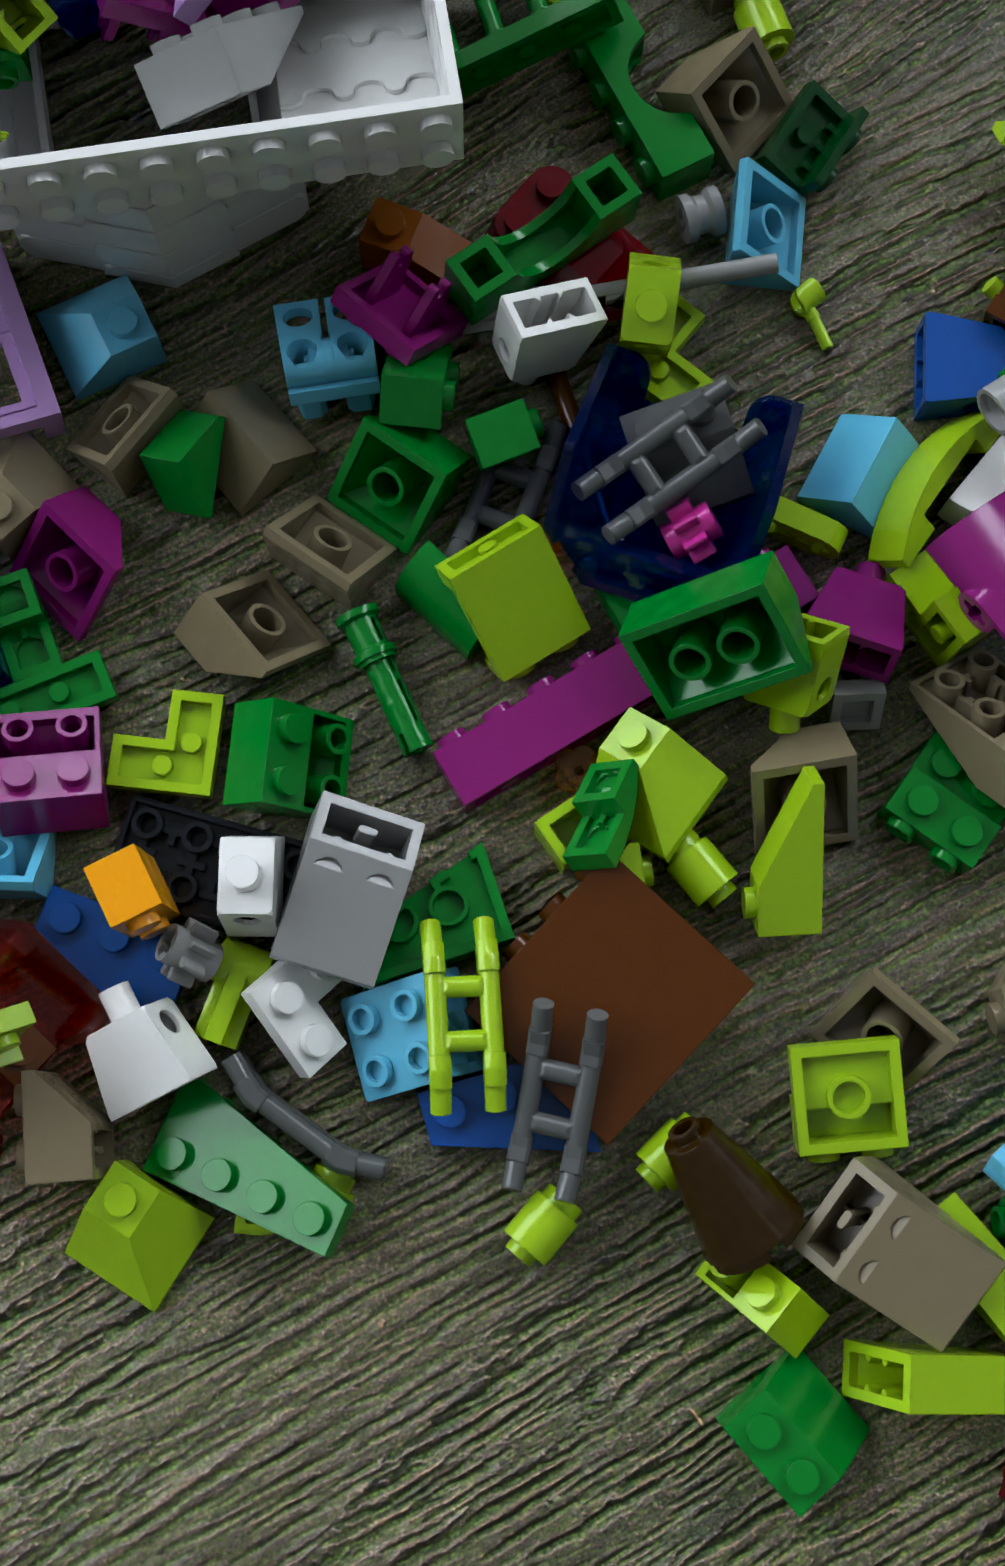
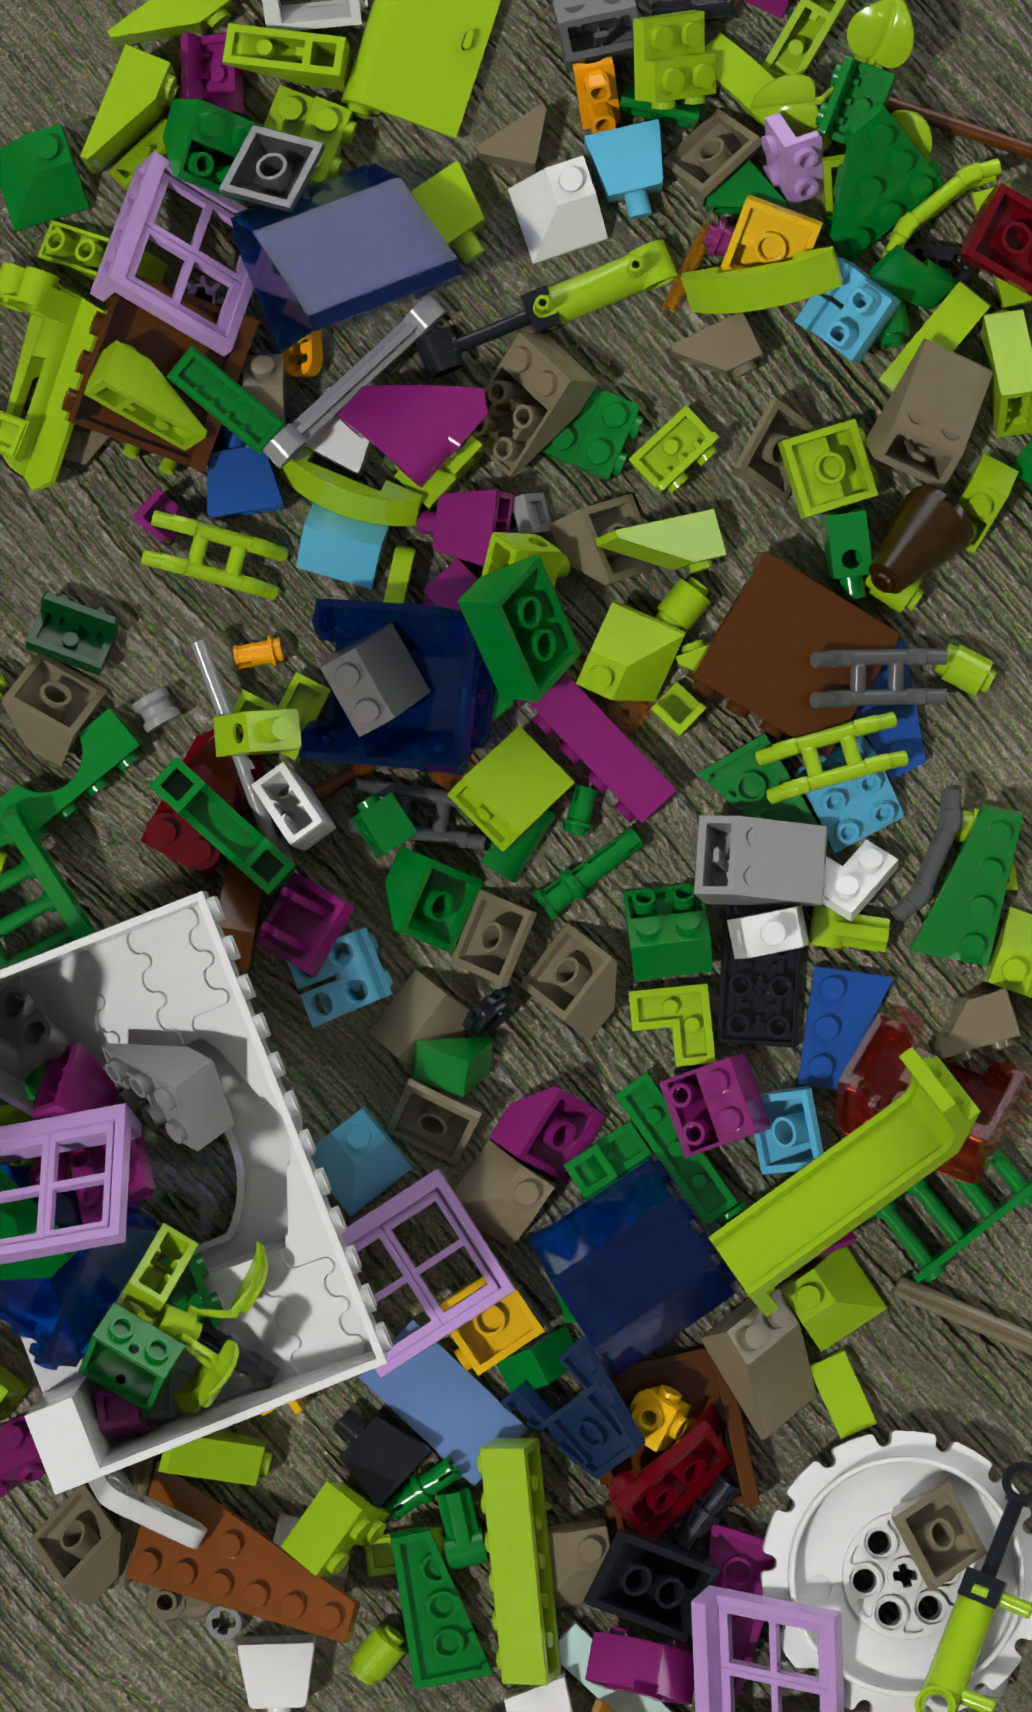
camera: 105 degrees left, 10 degrees up
(132, 893) = (799, 1013): light orange brick -> none
(143, 1051) = (907, 982): white torso -> none
(189, 953) = (829, 966): light grey gear -> none
(239, 519) = (491, 1011): none -> black gear
(420, 391) = (368, 891): green brick -> none
(466, 687) = (580, 811): none -> green pin
(607, 811) = (657, 684): green slope -> none
(675, 426) = (418, 693): dark grey piece -> none
(691, 530) = (435, 664): dark pink gear -> none
(744, 356) = (259, 653): none -> light orange pin
(759, 1097) = (840, 532): none -> green torso
(765, 220) = (157, 655): medium azure slope -> none
(804, 304) = (207, 613): lime hand -> none
(871, 279) = (194, 566): none -> lime piece
(903, 903) = (674, 450): none -> lime bracket
(933, 266) = (160, 502): none -> magenta panel

